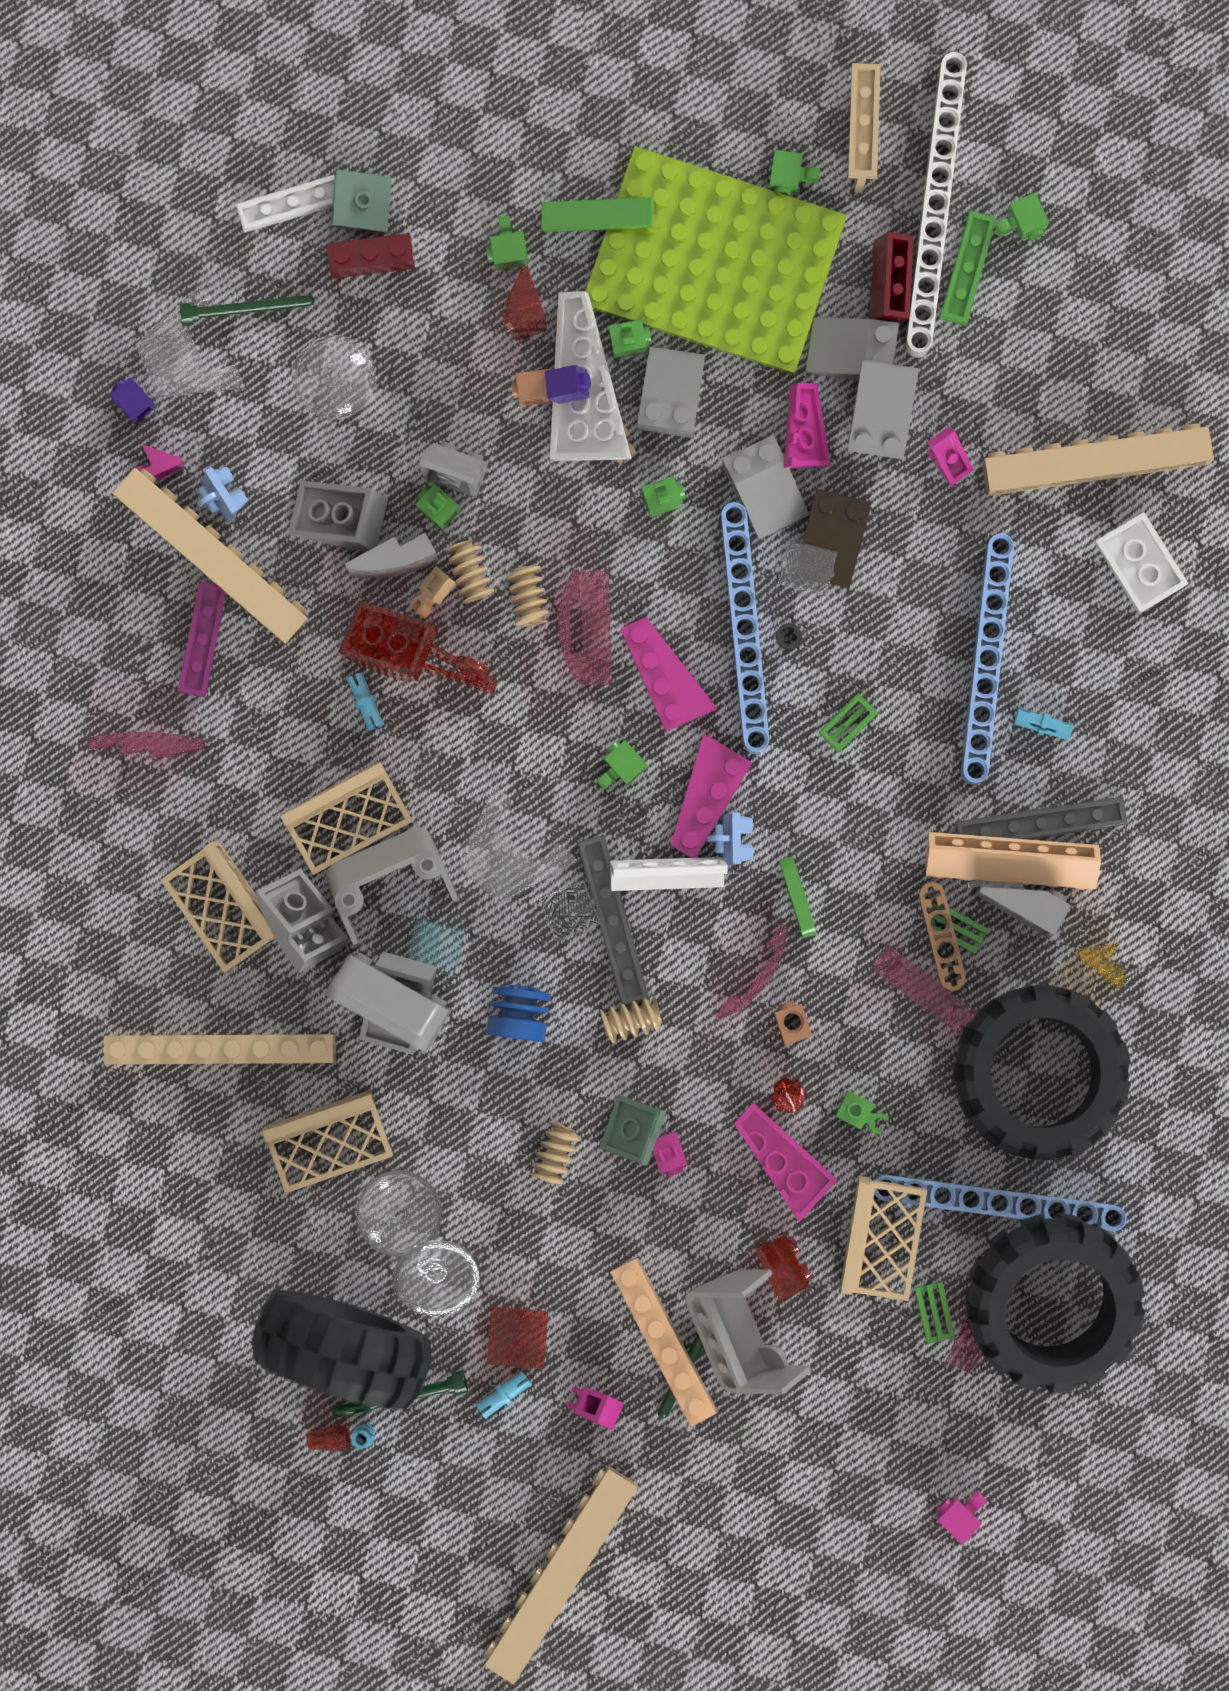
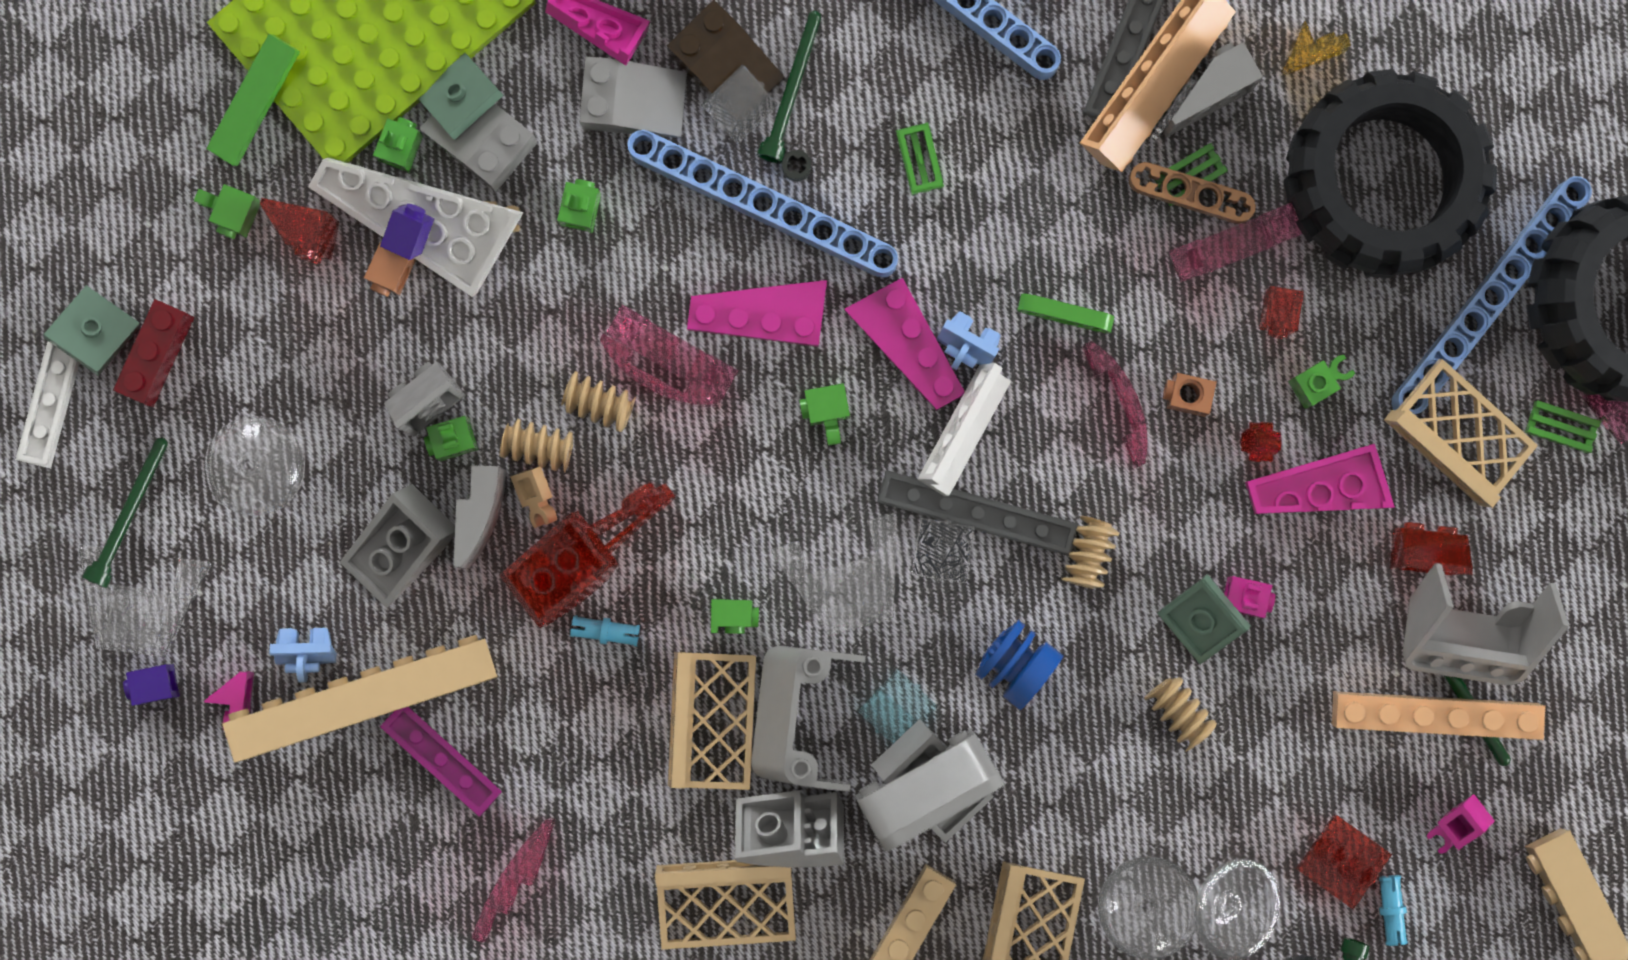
camera: 60 degrees left, 0 degrees up
(431, 787) = (733, 615): none -> bright green brick
(690, 362) = (460, 96): none -> sand green plate
(791, 610) = (772, 147): none -> dark green piece
(893, 1053) = (1281, 311): none -> clear red brick

